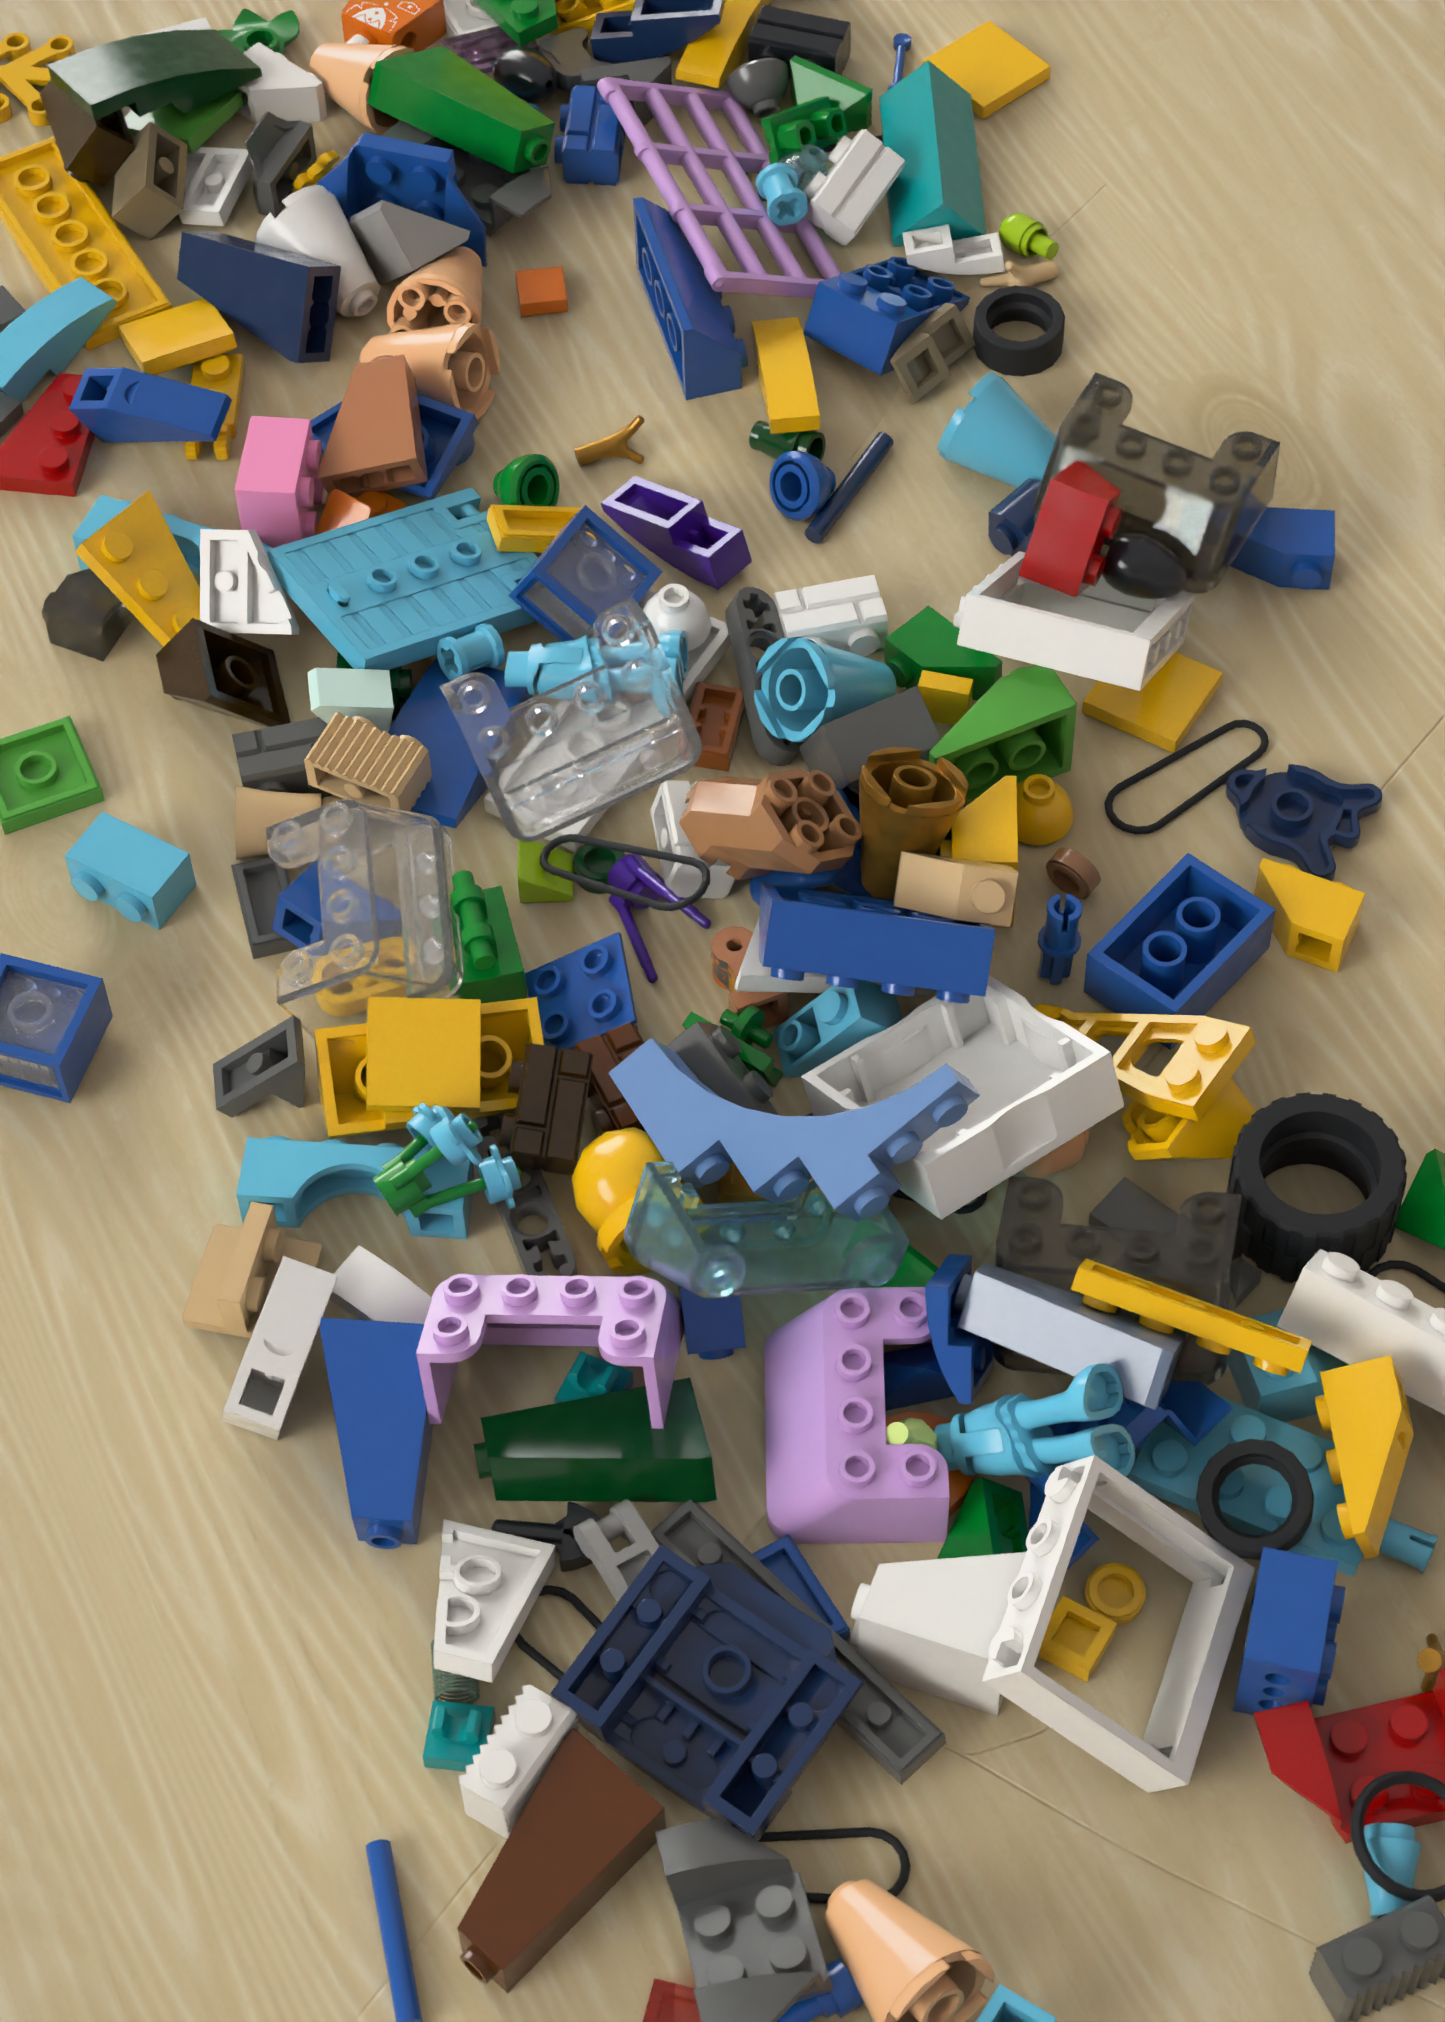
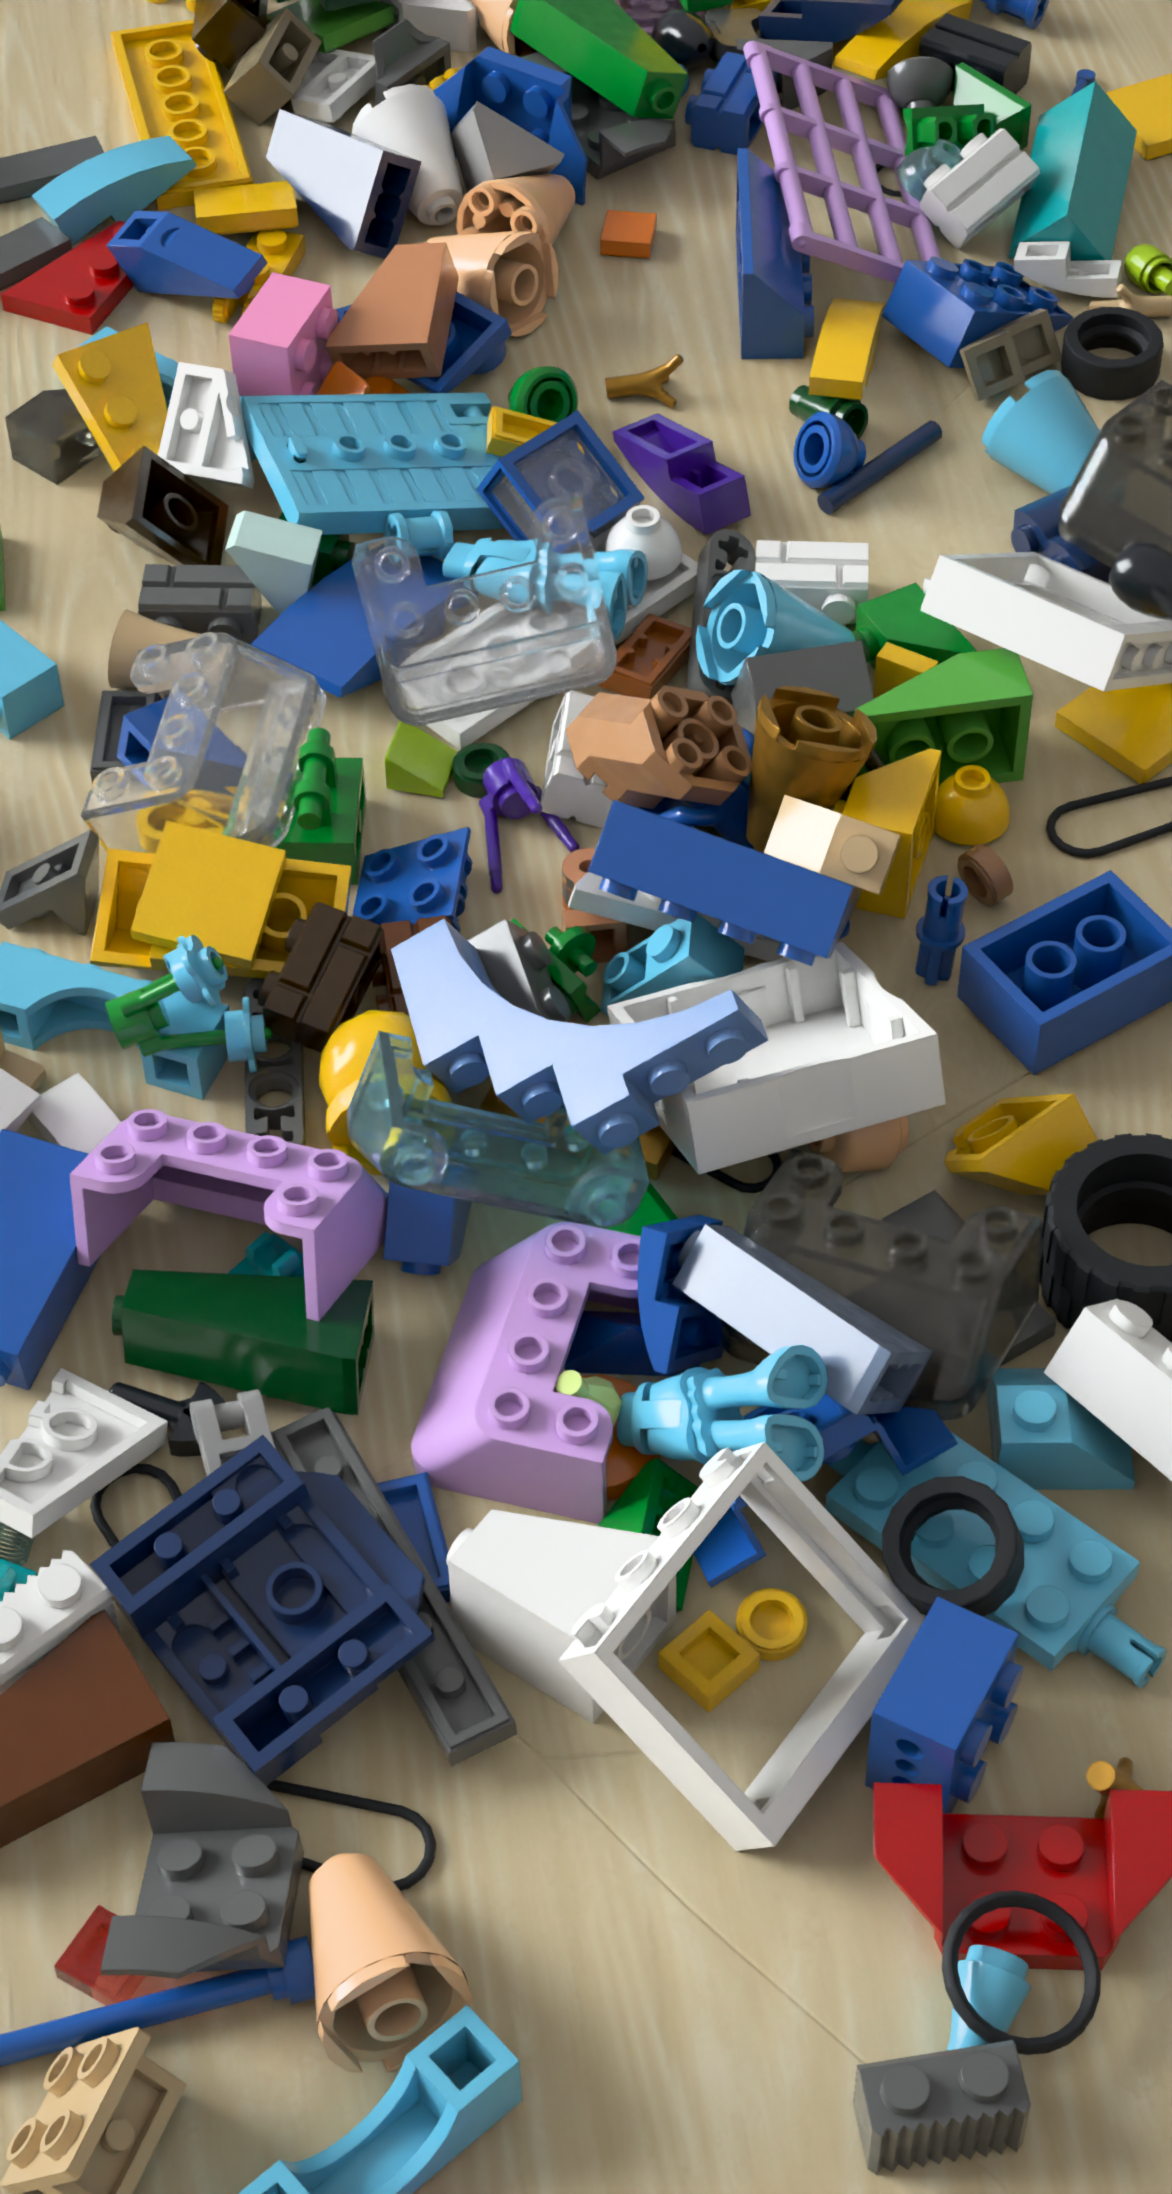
camera: 15 degrees right, 5 degrees down
(368, 764) = (266, 611): tan brick -> none
(629, 849) = (507, 748): black piece -> none
(784, 200) = (901, 179): medium azure bush -> none
(1072, 530) = (1082, 524): red slope -> none
(1194, 1075) = (1027, 1098): yellow plate -> none
(1214, 1326) = (959, 1346): yellow plate -> none
(1371, 1440) = (1107, 1517): yellow slope -> none

